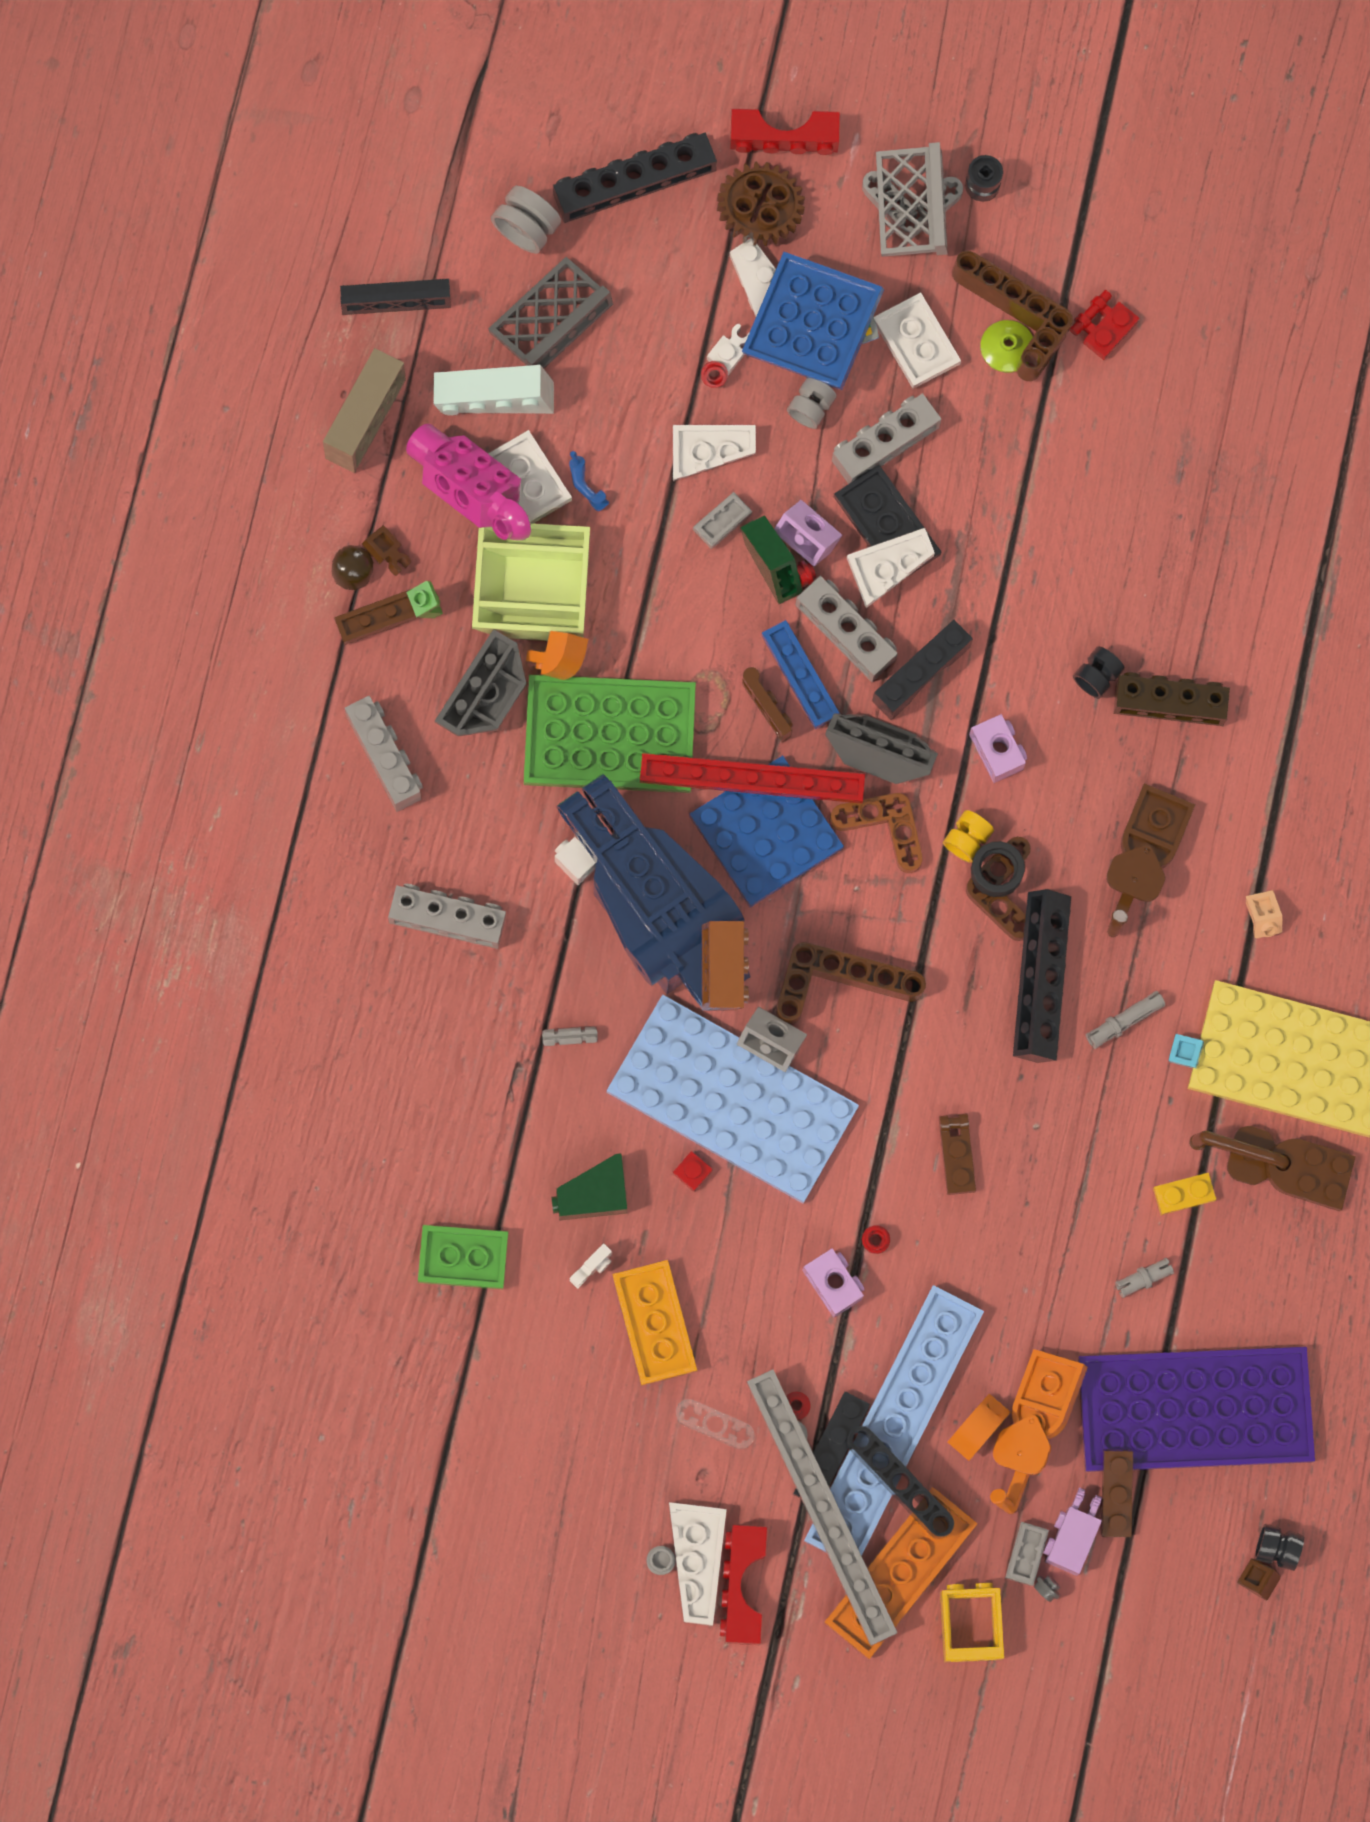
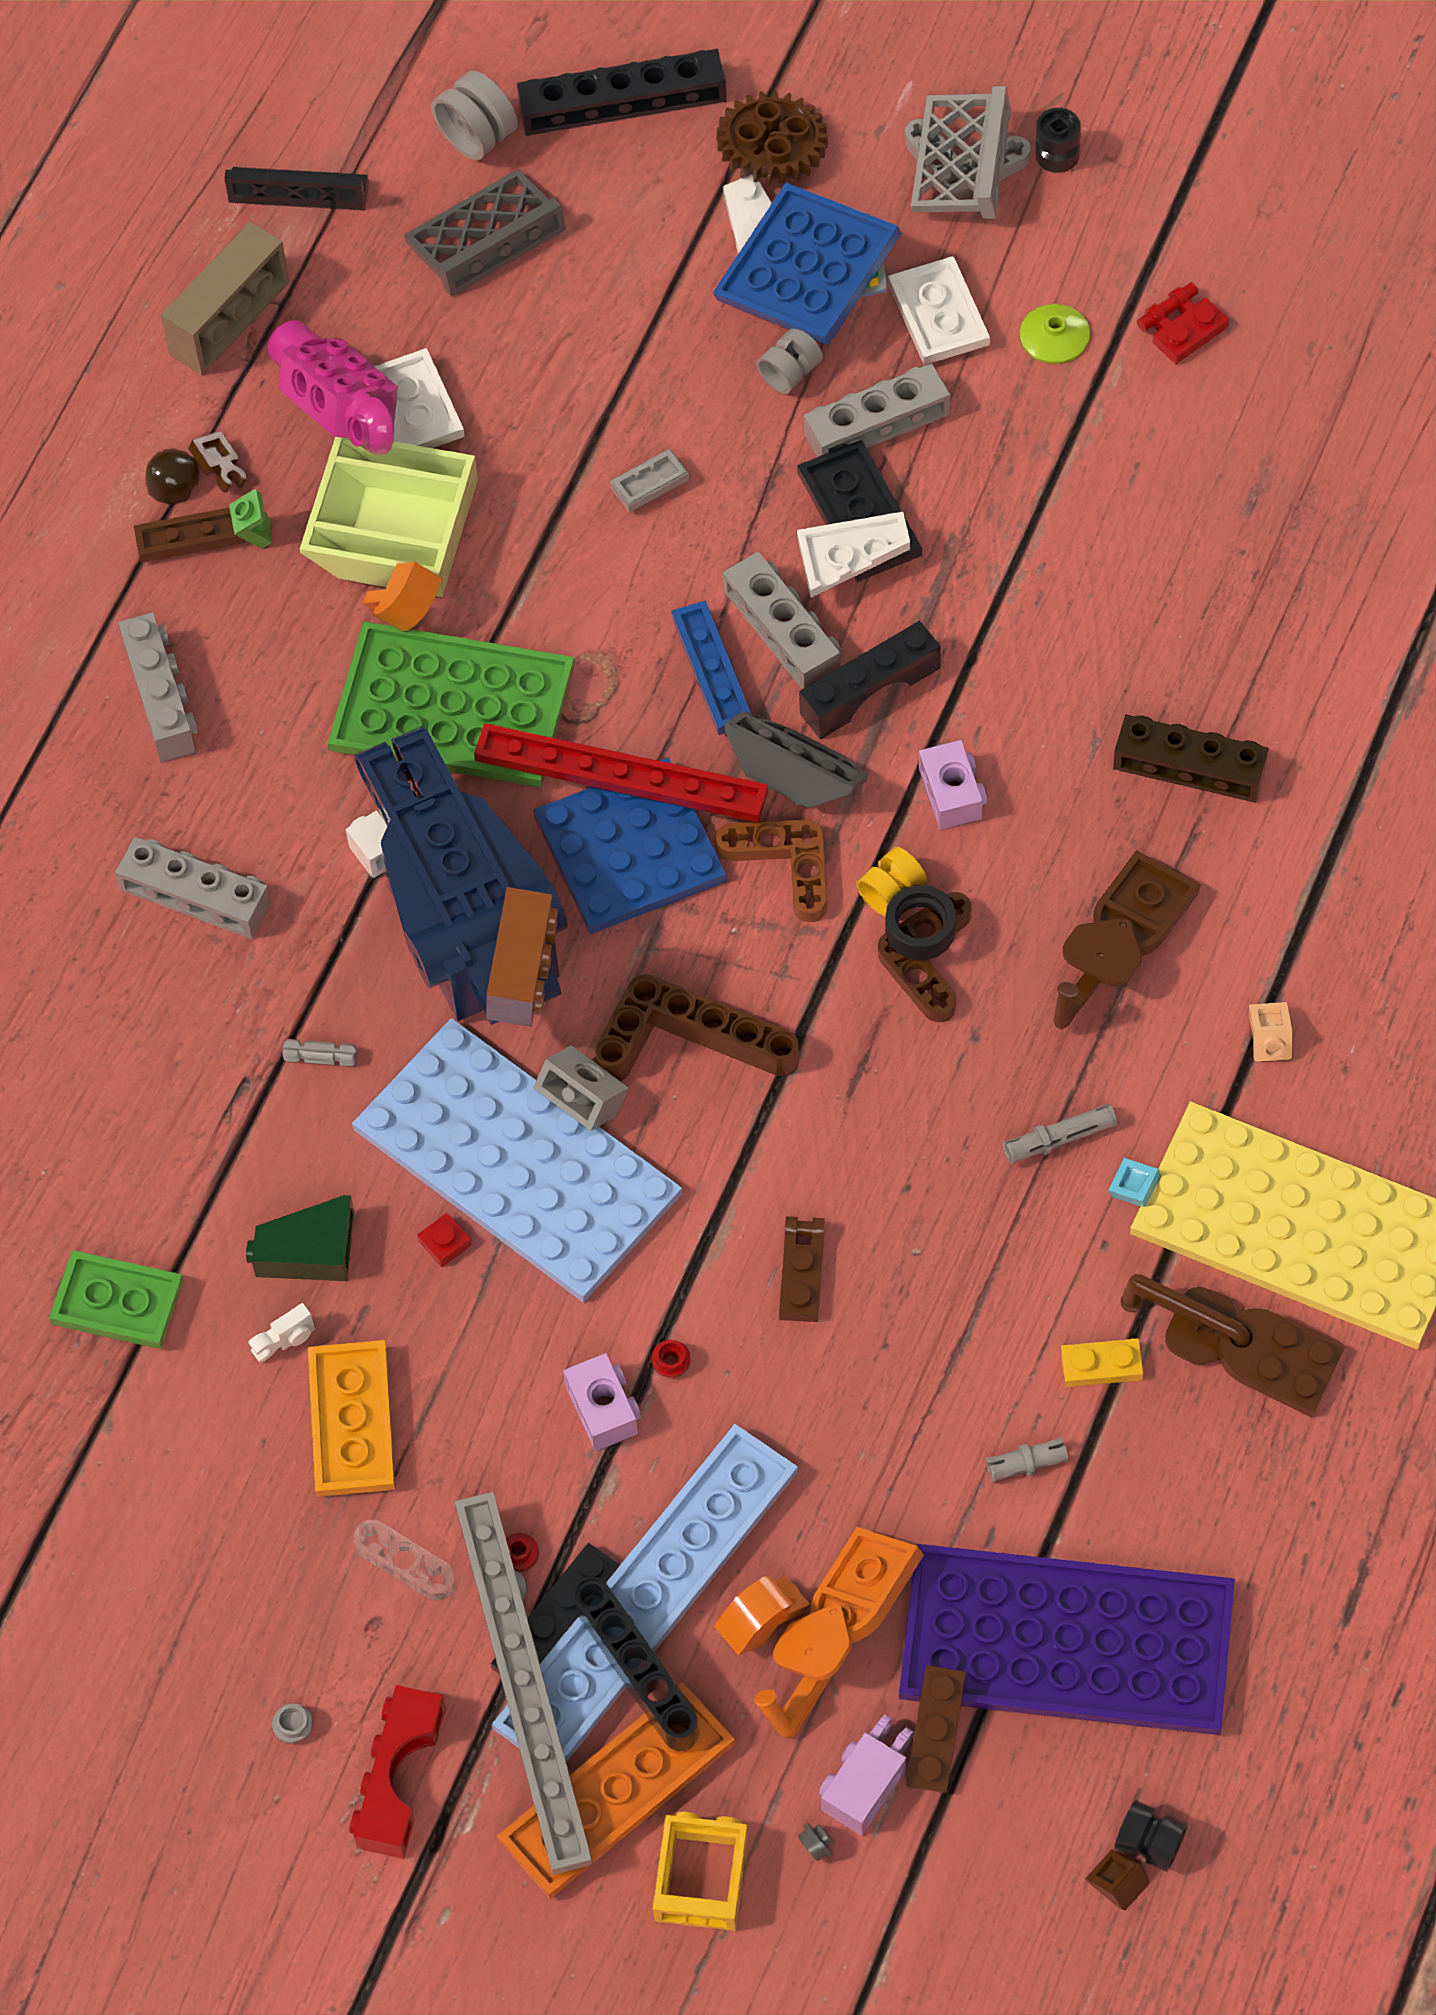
camera: 20 degrees right, 15 degrees down
(485, 689) = (301, 625): dark grey wedge -> none
(494, 391) = (396, 299): light aqua wedge -> none
(577, 467) = (479, 406): blue piece -> none
(698, 1550) = (344, 1723): white wing -> none
(709, 446) = (650, 396): white wing -> none
(714, 382) = (664, 321): red plate -> none
(728, 350) = (696, 296): white plate -> none
(752, 133) = (855, 72): red arch -> none
(767, 704) = (660, 695): reddish brown plate -> none
(772, 559) = (702, 529): dark green slope -> none
(806, 573) = (739, 549): red plate -> none
(807, 533) = (753, 503): lavender brick -> none
(1018, 308) = (1106, 302): reddish brown beam -> none
(1026, 1554) = (796, 1792): light grey plate -> none
(1042, 976) = (956, 1061): black brick -> none
(1101, 668) = (1098, 712): black wheel -> none

